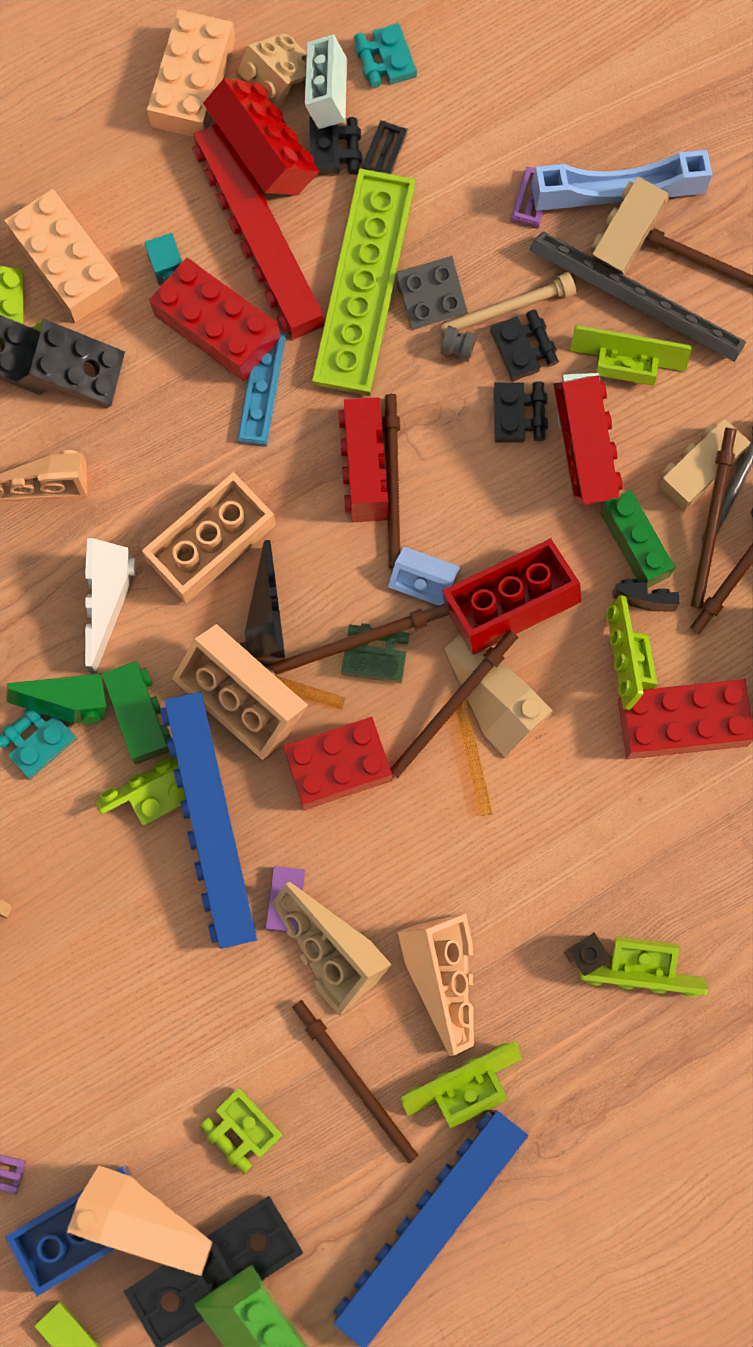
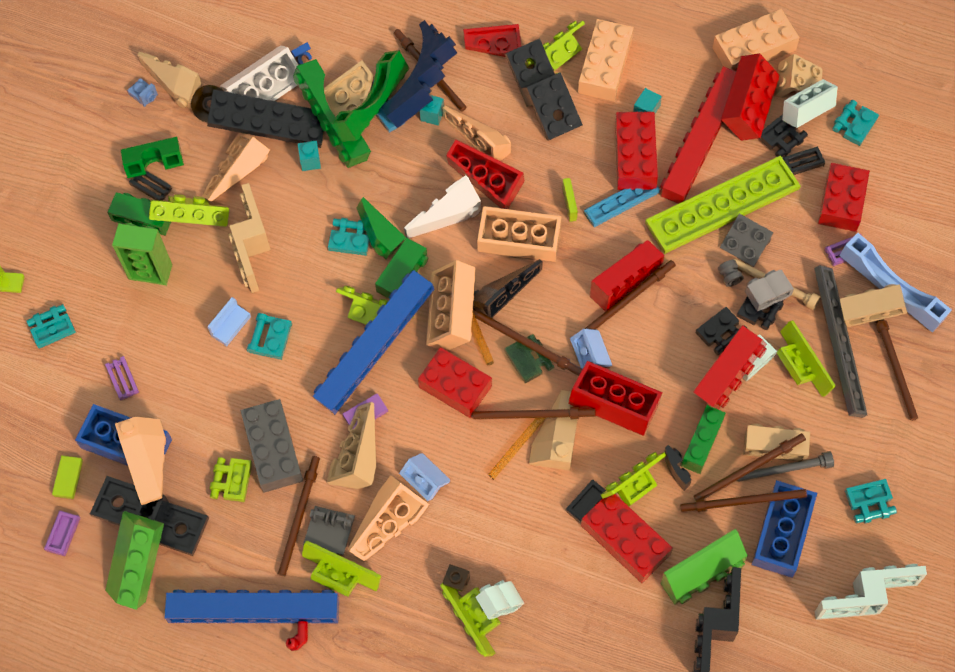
camera: 55 degrees right, 10 degrees down
(28, 977) = (228, 322): none -> light blue panel
(96, 934) = (275, 339): none -> teal plate
(98, 512) = (486, 173): none -> red wedge
(211, 444) = (569, 199): none -> lime tile
(239, 1047) = (271, 446): none -> dark grey brick
(402, 1058) = (329, 529): none -> dark grey hinge
(425, 891) = (424, 476): none -> light blue panel
(469, 145) = (843, 197): none -> red brick
(512, 1198) = (300, 638): none -> red arm
(519, 320) = (768, 290): none -> light grey brick
(604, 729) = (585, 501): none -> black tile
(652, 924) = (499, 599): none -> light aqua brick

